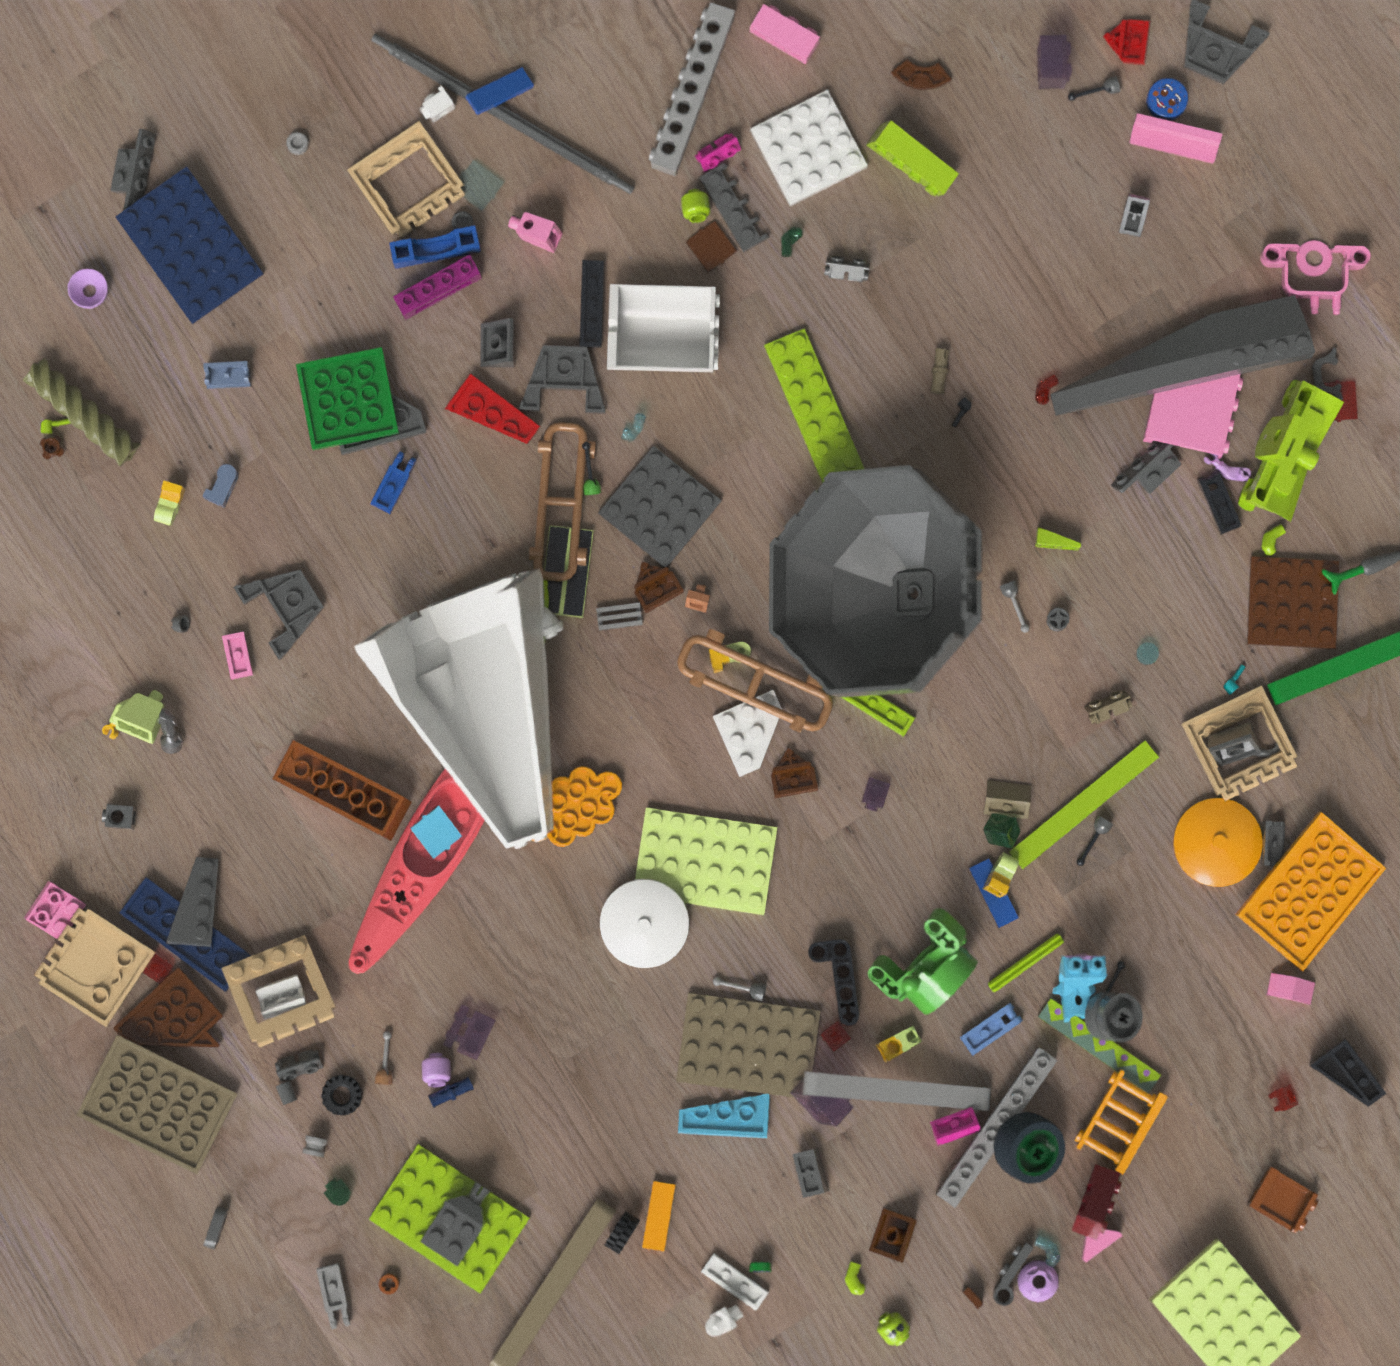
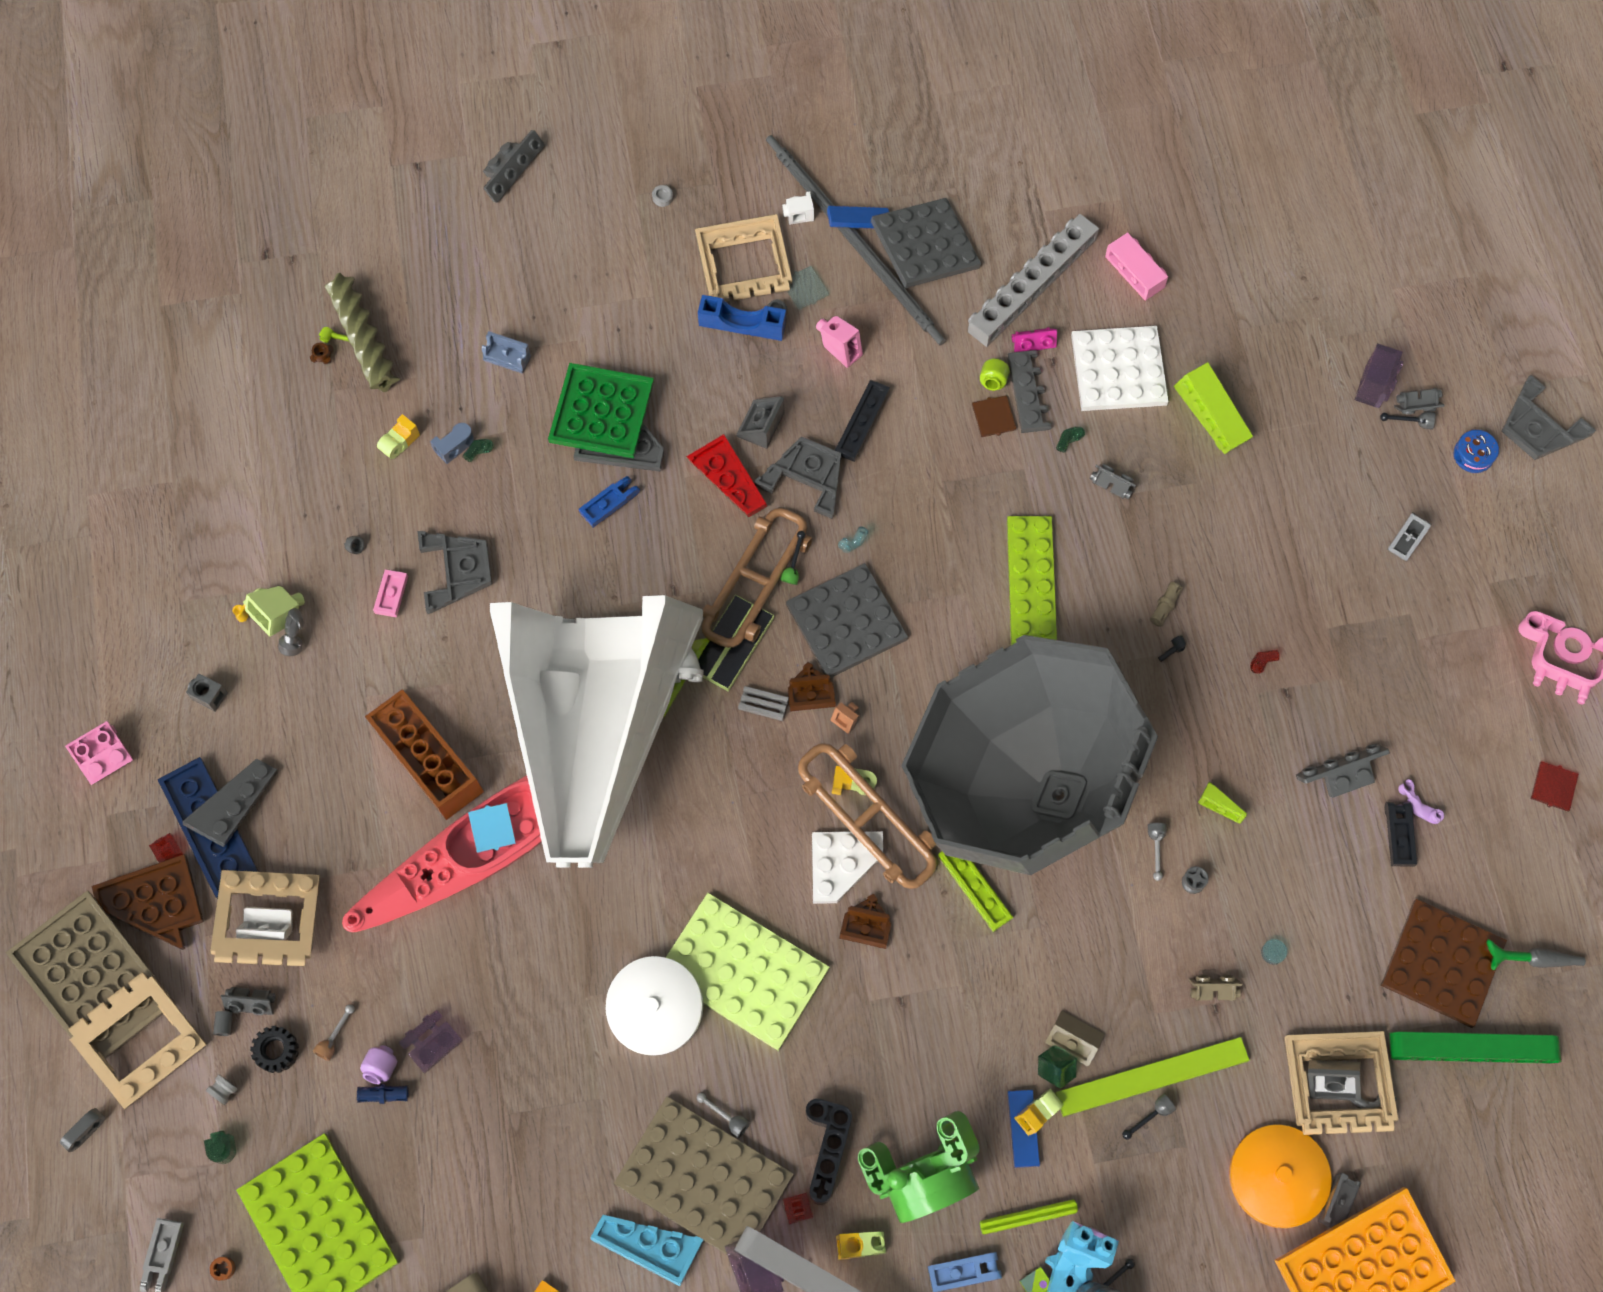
camera: 20 degrees right, 15 degrees down
(80, 281) = (420, 230): lavender piece -> none
(94, 965) = (106, 820): tan hinge -> none
(189, 245) = (526, 236): dark blue plate -> none
(246, 480) = (478, 447): none -> clear green arm
(250, 1151) = (158, 1065): none -> tan hinge
(437, 287) = (728, 352): magenta brick -> none
(457, 1225) = (319, 1235): dark grey plate -> none
(574, 92) = (925, 242): none -> dark grey plate
(582, 803) = (640, 863): light orange plate -> none
(663, 328) = (919, 459): white cylinder -> none
(875, 794) = (941, 976): clear purple bracket -> none
(921, 77) = (1247, 348): reddish brown tile -> none
(1107, 66) = (1427, 402): none -> dark grey hinge
(1130, 41) = (1457, 390): red slope -> none
(1175, 138) = (1473, 487): bright pink panel -> none
(1195, 415) = (1408, 729): bright pink panel -> none
(1204, 351) = (1430, 682): dark grey wedge -> none
(1230, 686) = (1350, 1019): teal hand -> none
(1269, 539) = (1441, 889): lime arm -> none
(1289, 449) = (1510, 795): lime piece -> none
(1317, 375) = (1541, 762): dark grey helmet -> none

